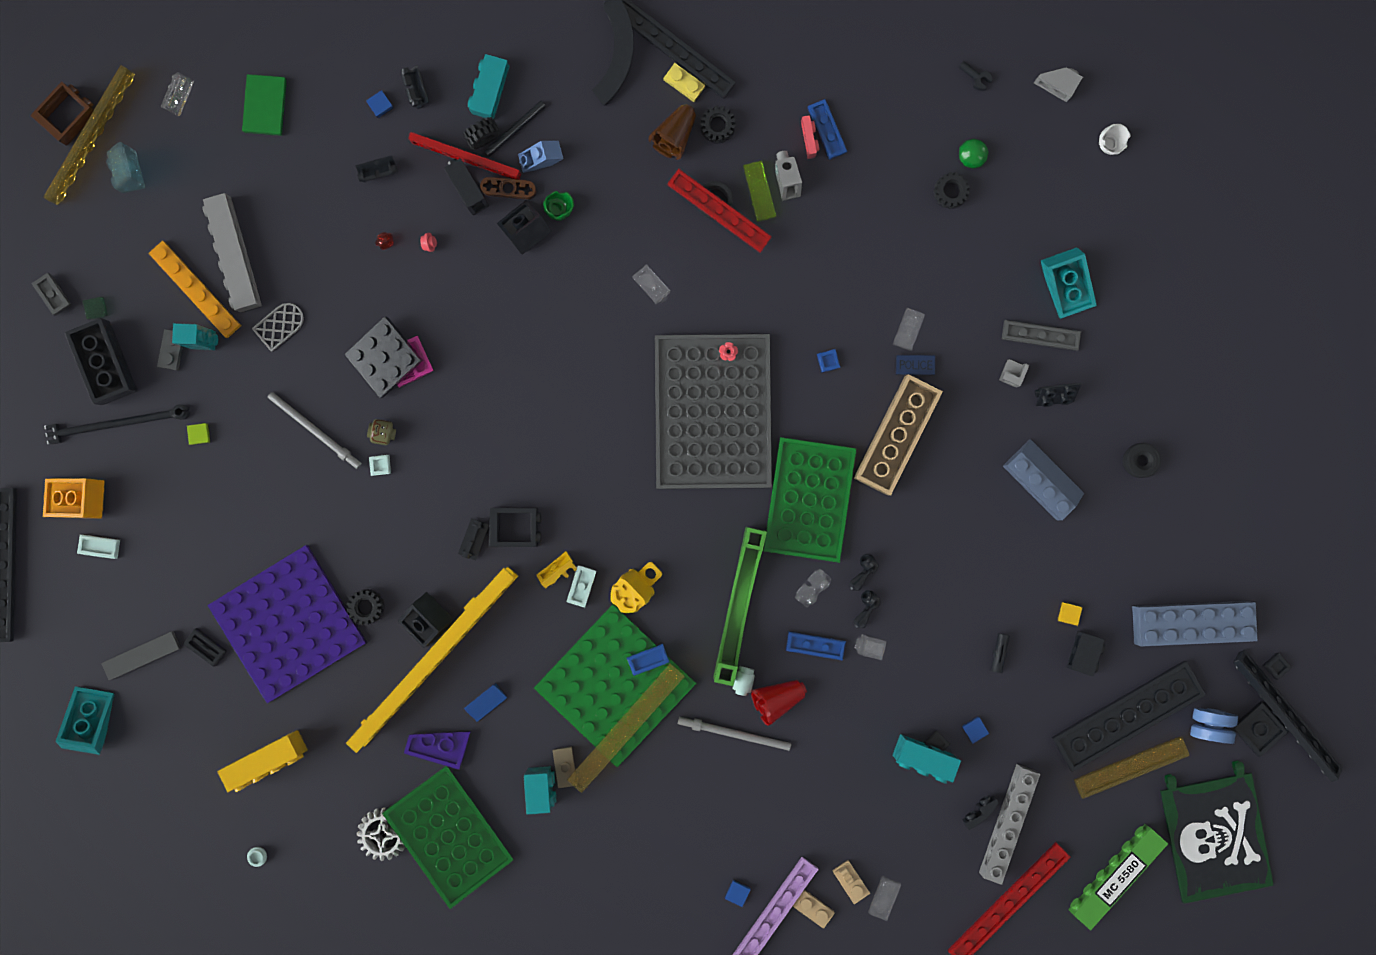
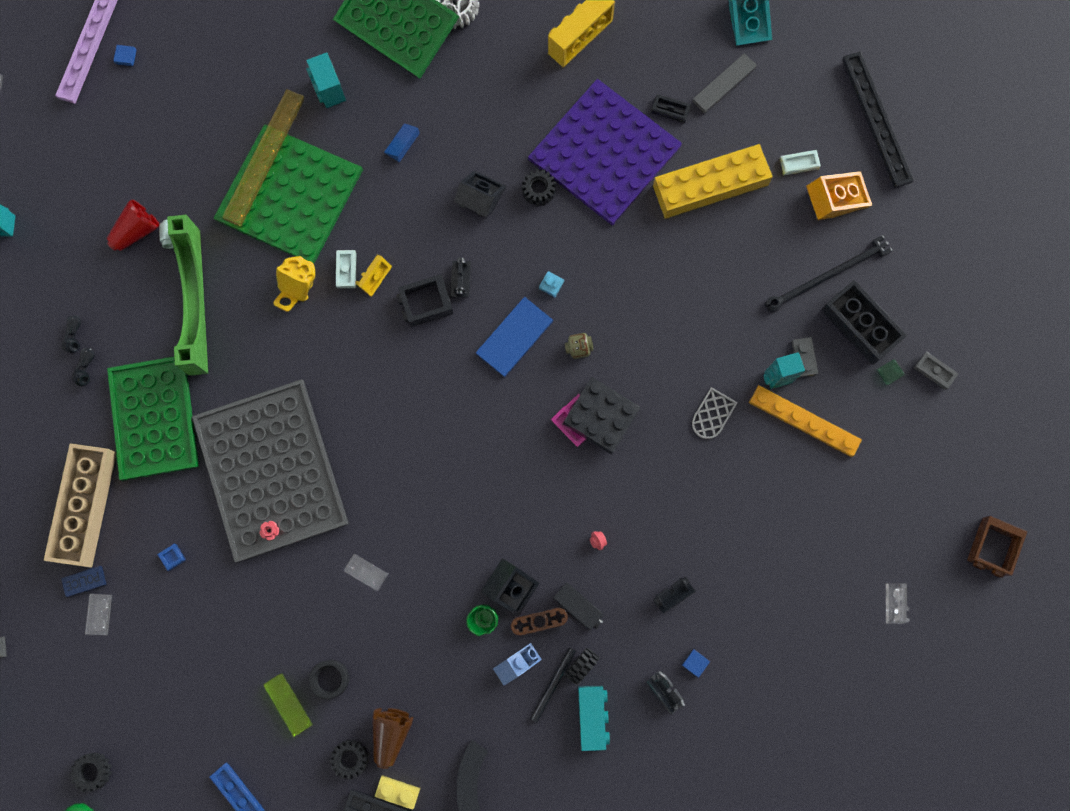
camera: 160 degrees right, 10 degrees down
(89, 134) = (962, 541): clear yellow plate -> none
(124, 168) = (916, 511): clear light blue slope -> none
(192, 554) = (712, 181): none -> yellow brick
(198, 434) = (749, 289): lime tile -> none
(232, 252) = (782, 466): light grey brick -> none
(264, 105) = (808, 623): green tile -> none
(343, 453) = (609, 316): light grey bar -> none
(380, 465) = (571, 317): light aqua tile -> none
(384, 240) = (641, 528): clear red plate -> none
(387, 504) = (551, 284): none -> medium azure tile
(440, 463) = (514, 337): none -> blue tile
(441, 748) = (430, 90): dark purple wing -> none
(466, 157) = (571, 637): red tile -> none
(473, 612) = (455, 168): yellow ladder -> none
(564, 765) = (313, 111): dark tan plate -> none
(648, 659) = (262, 223): blue tile -> none
(698, 725) = (201, 183): light grey bar -> none
(719, 210) = (318, 668): red tile -> none
(788, 176) = (257, 722): light grey torso -> none
(808, 129) = (254, 784): coral plate -> none
(809, 594) = (130, 331): clear hinge -> none
(813, 909) = (50, 63): tan plate -> none
(815, 645) = (111, 287): blue tile -> none
(851, 882) = (24, 96): tan plate -> none
(870, 646) = (57, 302): clear brick -> none

